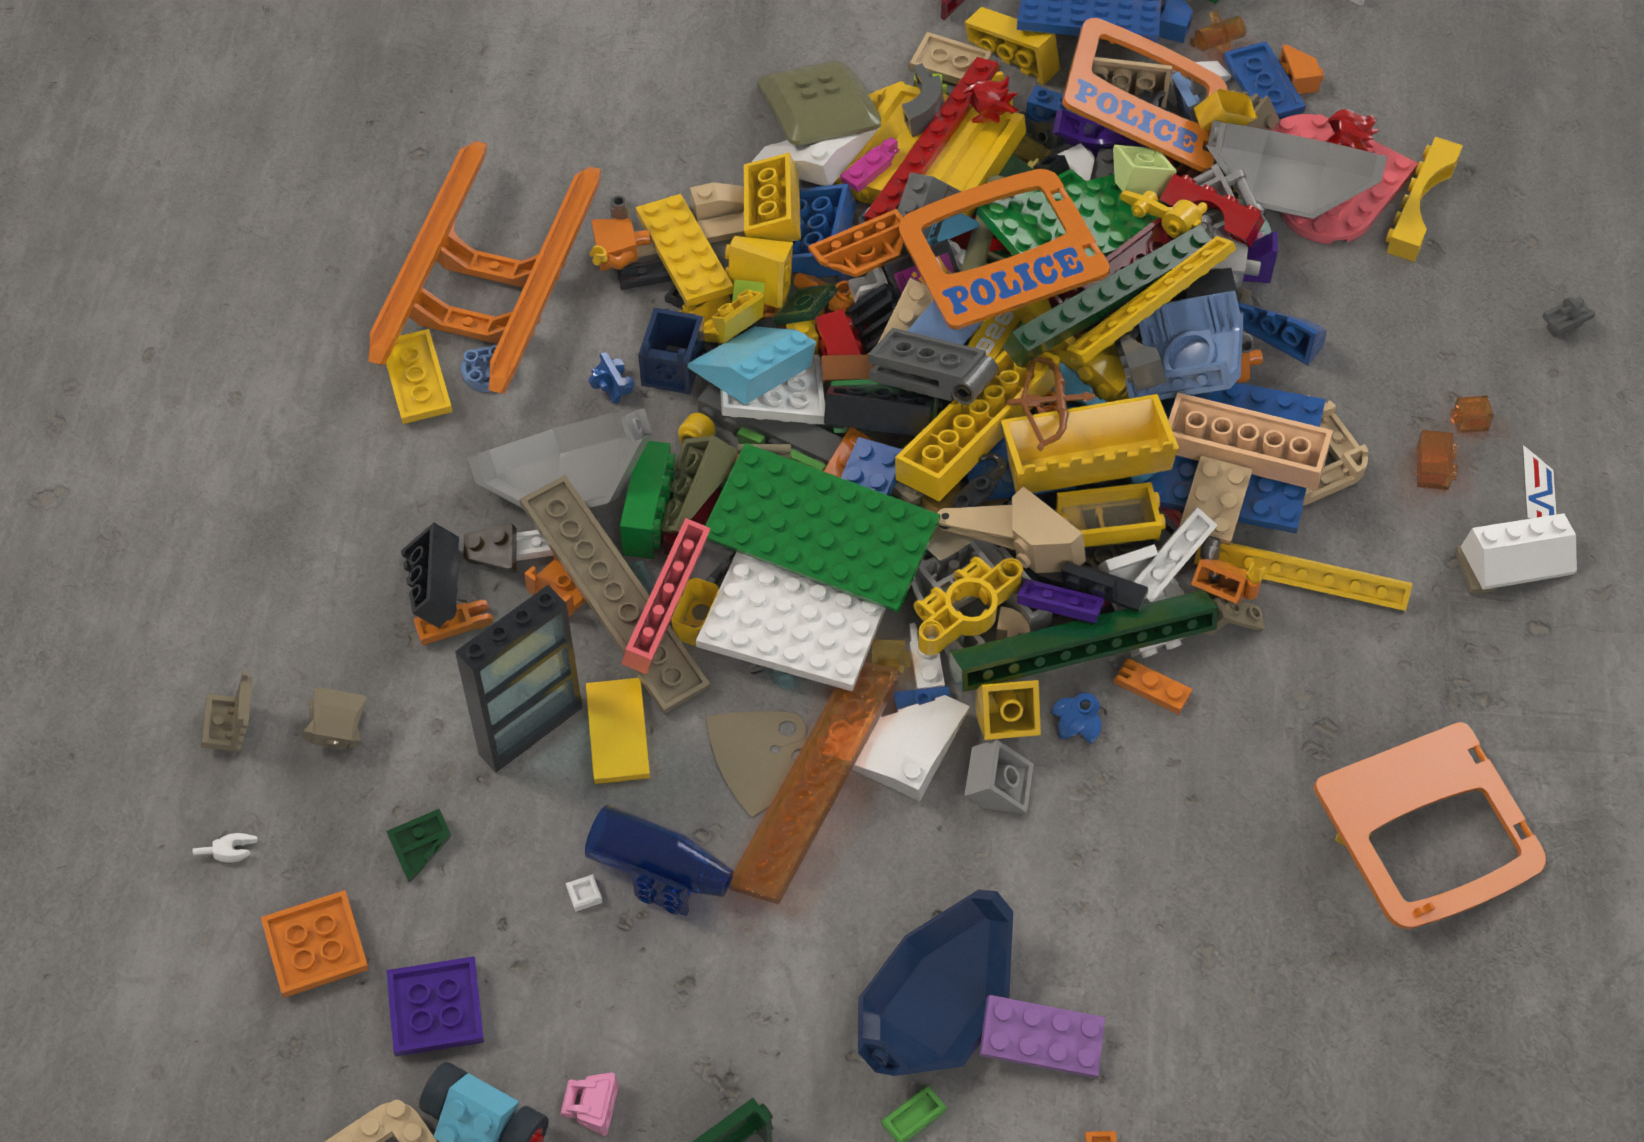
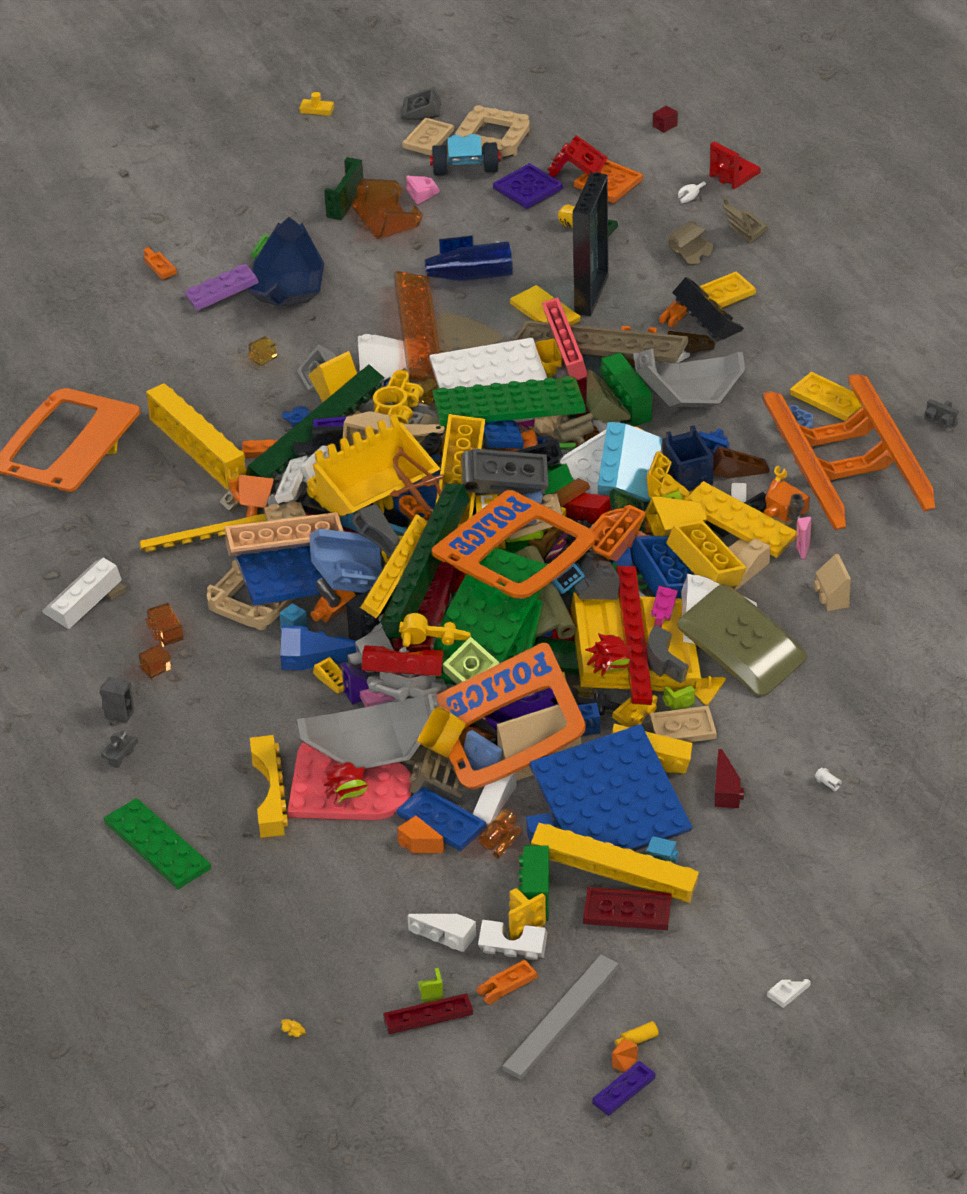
camera: 150 degrees right, 15 degrees down
(112, 1034) = (665, 119): none -> dark red brick
(141, 844) = (730, 166): none -> red bracket
(321, 271) = (942, 412): none -> dark grey hips
(329, 986) = (577, 153): none -> red bracket
(367, 619) = (729, 289): none -> yellow plate
(437, 886) = (565, 215): none -> yellow head
(614, 333) = (733, 464): none -> reddish brown slope
(640, 185) = (803, 536): none -> bright pink slope
(641, 308) = (739, 491): none -> white sticker
(664, 121) = (833, 584): none -> tan slope
(686, 1070) = (380, 209): none -> clear orange windscreen
(1058, 865) = (262, 351): none -> clear yellow brick
(1247, 730) = (194, 434): none -> yellow brick
(1274, 300) = (329, 664): none -> yellow slope
(1280, 378) = (293, 616): none -> dark azure brick
(1539, 486) = (88, 648): white sticker -> none
(1547, 366) = (117, 699): none -> flat silver brick
(1573, 201) = (157, 843): none -> green plate

